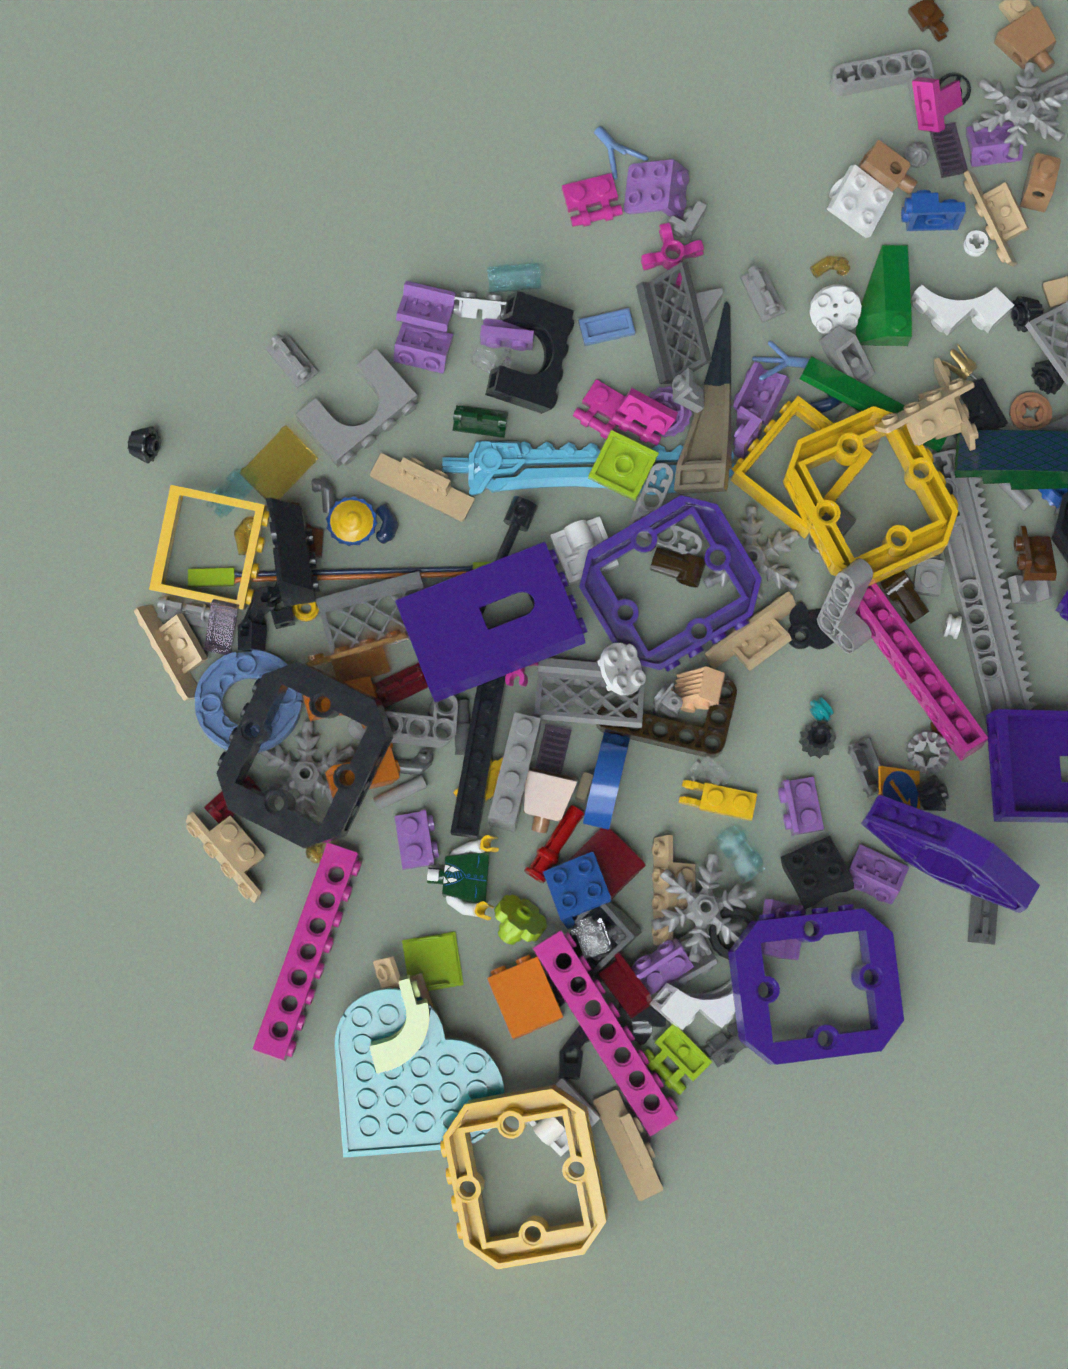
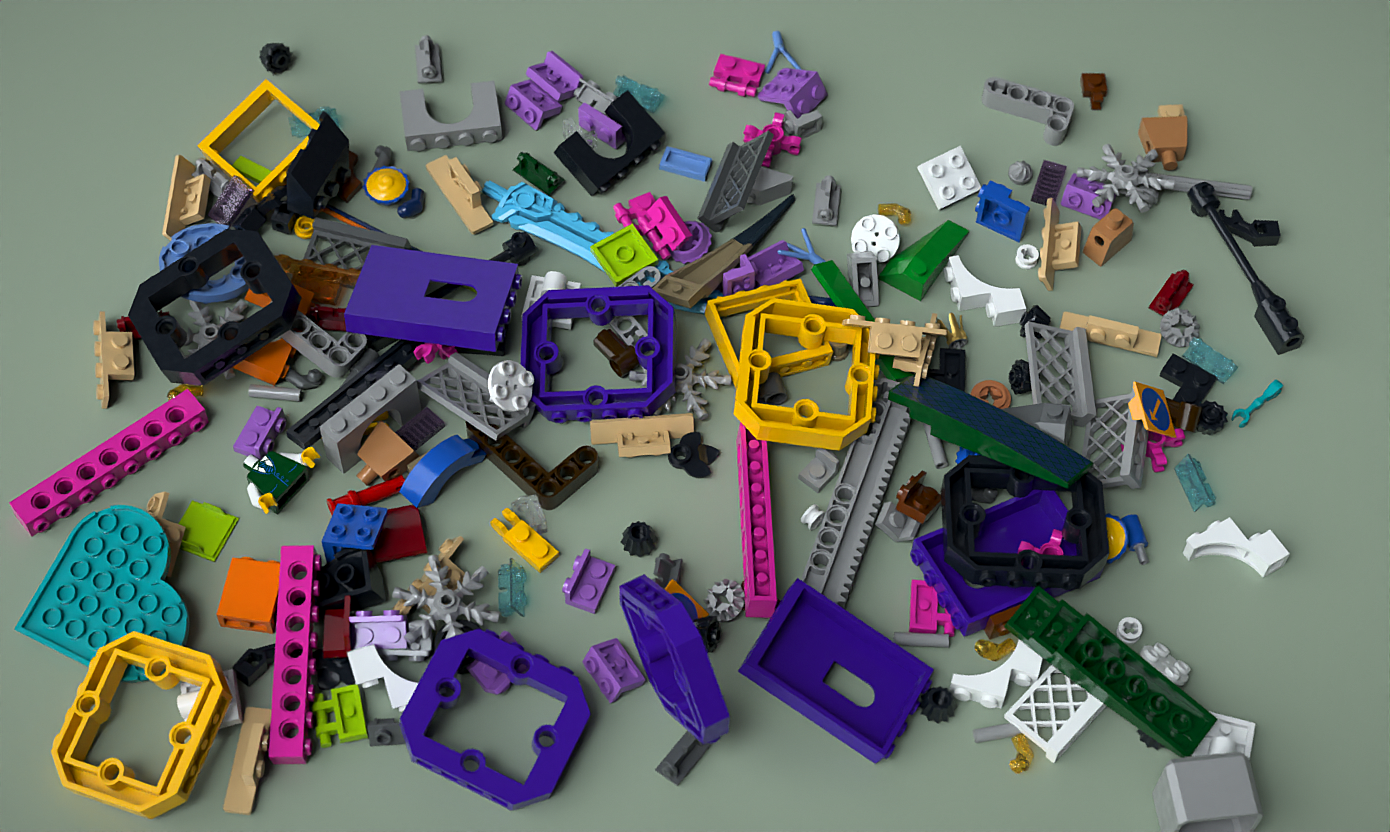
camera: 30 degrees right, 20 degrees down
(278, 464) = (364, 119): clear yellow piece -> none
(401, 1046) = (135, 552): yellowish green arch -> none
(519, 920) = (290, 528): lime plant -> none
(592, 936) = (337, 570): clear bracket -> none
(668, 702) = (532, 437): light grey hinge -> none
(688, 393) = (712, 231): light grey bracket -> none
(699, 688) = (564, 440): light nougat brick -> none
(817, 872) = (562, 634): black brick -> none
(821, 710) = (657, 518): teal plate -> none
(838, 612) = (727, 438): light grey beam -> none
(887, 168) = (985, 159): medium nougat torso -> none
(902, 591) = (788, 466): dark brown piece -> none
(935, 103) = (1055, 138): dark pink piece -> none

